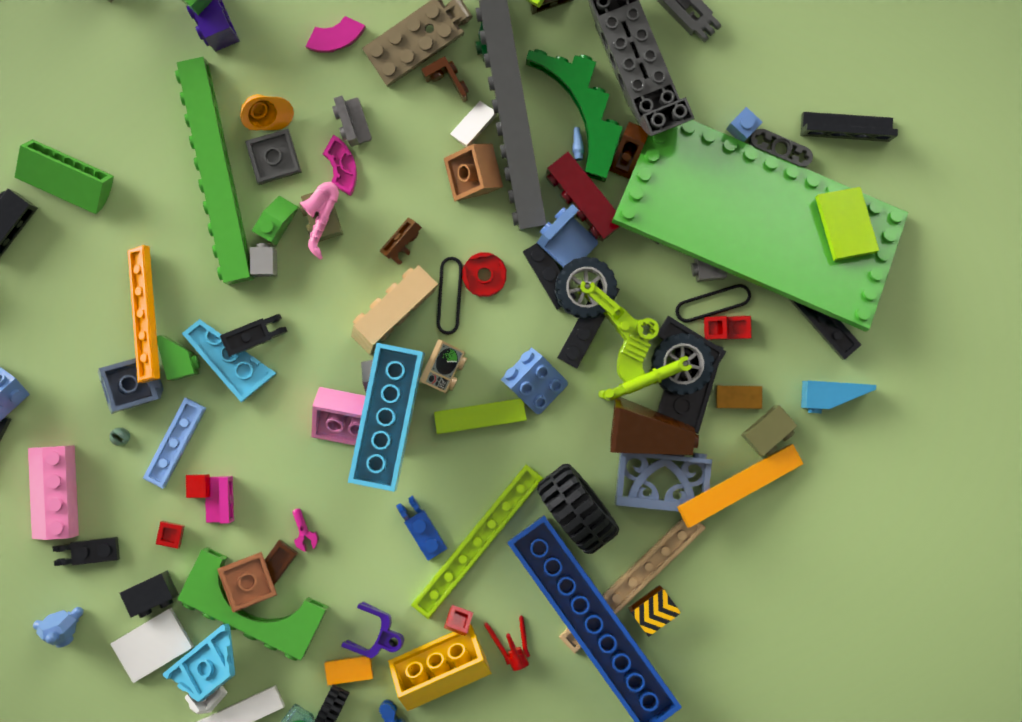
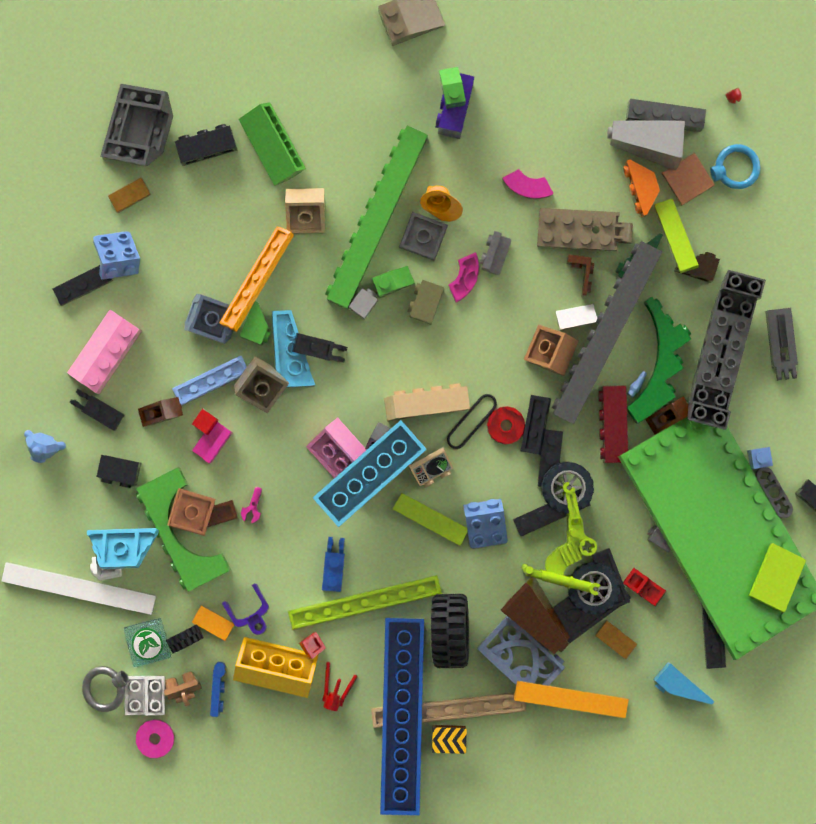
camera: 40 degrees right, 0 degrees up
(121, 432) = (181, 347): sand green hinge -> none
(142, 215) = (305, 210): none -> tan slope
(147, 508) = (160, 411): none -> reddish brown slope
(152, 645) = (94, 505): white tile -> none
(170, 534) = (162, 440): red plate -> none
(222, 411) = (260, 385): none -> dark tan slope
(323, 202) = (434, 295): bright pink piece -> none
(406, 233) = (467, 358): reddish brown plate -> none
(511, 253) = (535, 424): none -> black plate
(566, 237) = (580, 443): medium blue bracket -> none
(710, 294) = (648, 554): black piece -> none
(769, 431) = (619, 678): olive brick -> none

